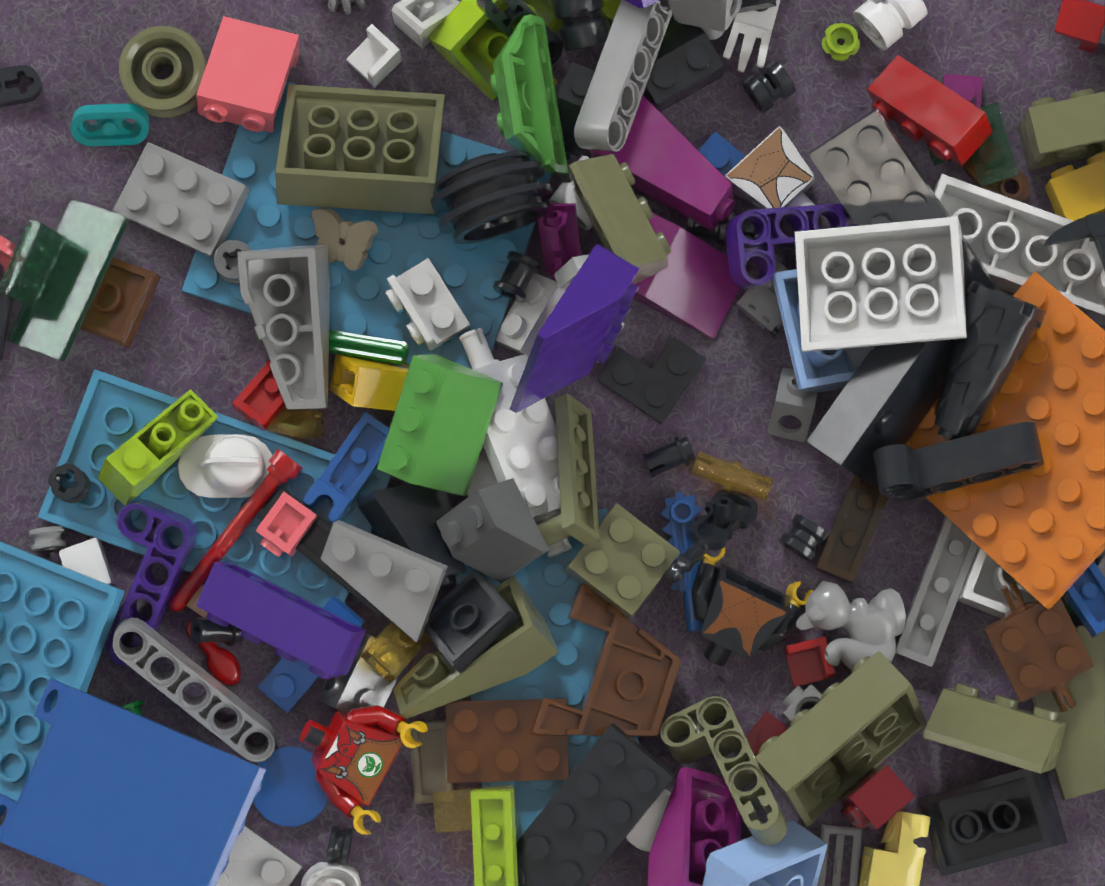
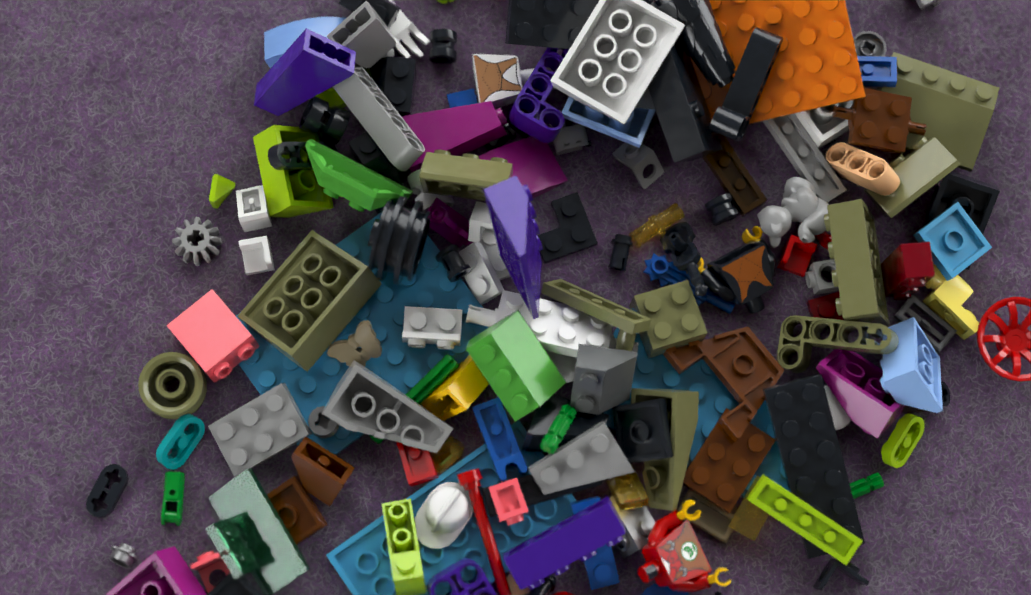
camera: 65 degrees left, 5 degrees down
(51, 159) = (173, 493): none -> green bar
(180, 296) = (320, 470): none -> reddish brown slope
(401, 522) = (558, 429): none -> green axle
(951, 830) = (953, 241): none -> dark azure plate
(965, 666) = (863, 168): none -> light nougat beam

